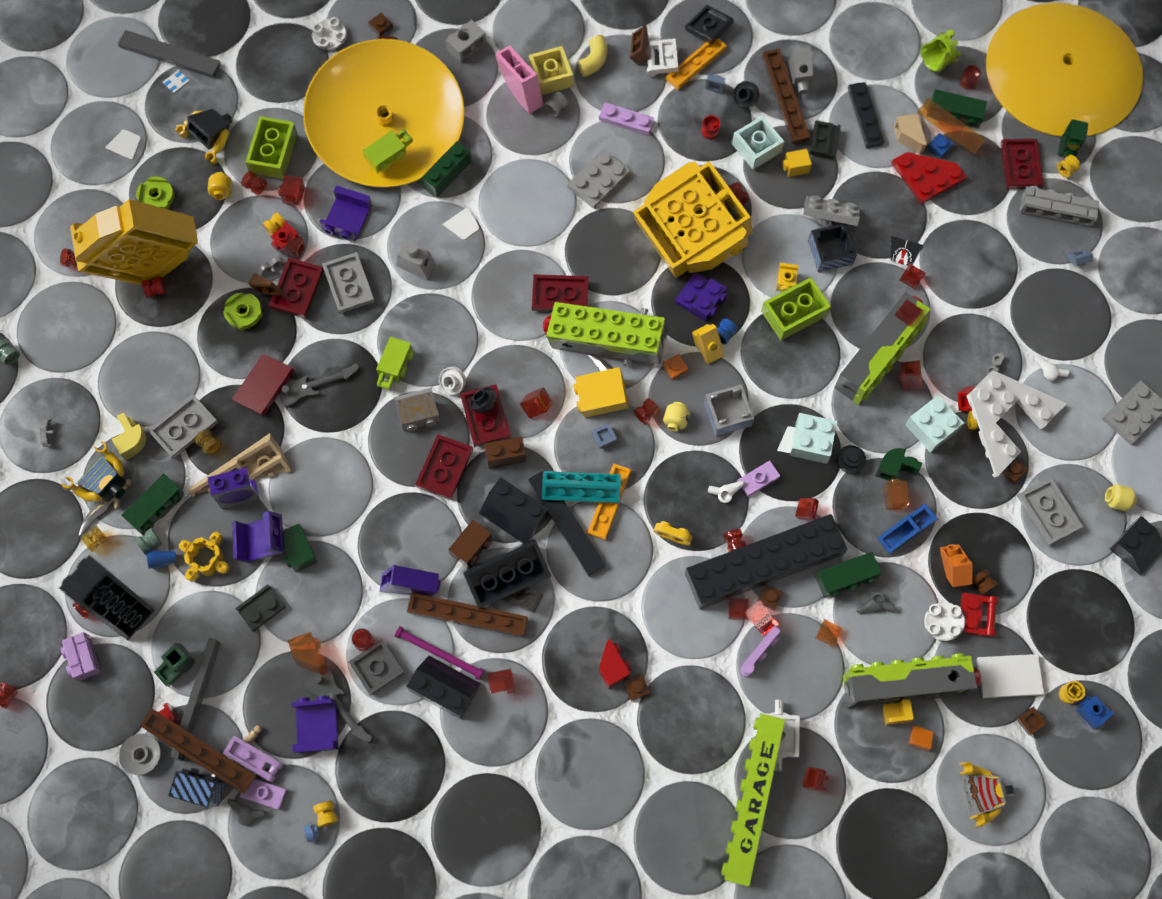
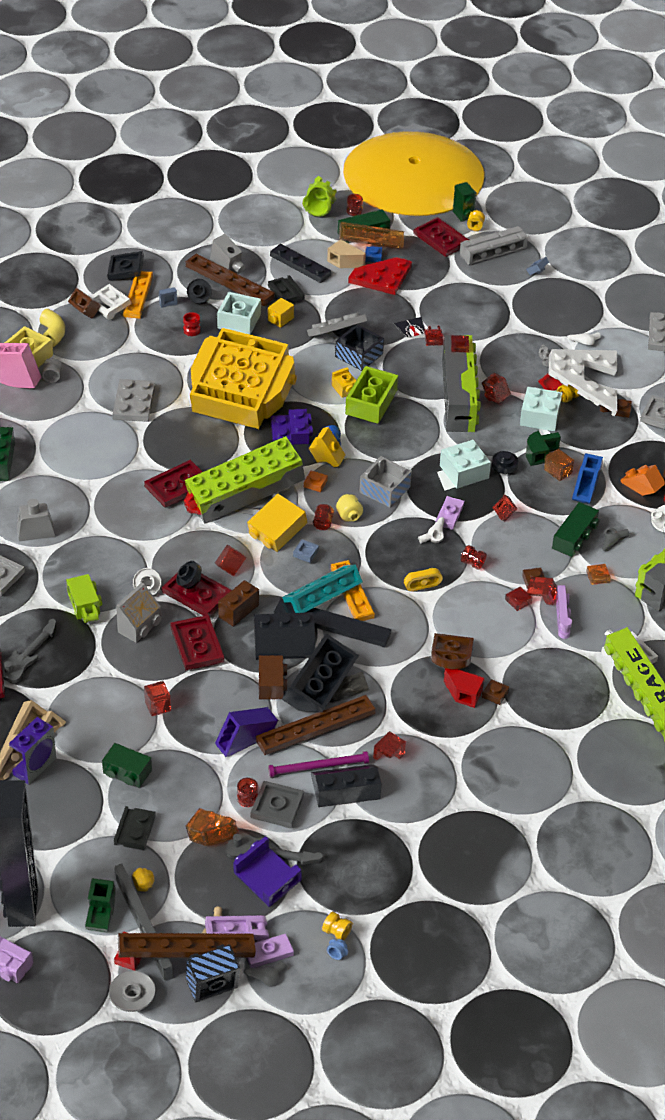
camera: 40 degrees left, 25 degrees down
(216, 562) = (51, 832): yellow piece -> none
(226, 661) = (143, 879): none -> yellow piece
(258, 538) = (88, 775): dark purple panel -> none
(367, 501) = (157, 698): none -> clear red panel
(462, 224) = (48, 485): white sticker -> none
(626, 118) = (117, 353): lavender plate -> none
(633, 623) = (451, 651): none -> reddish brown tile
(765, 561) = (508, 556): black brick -> none

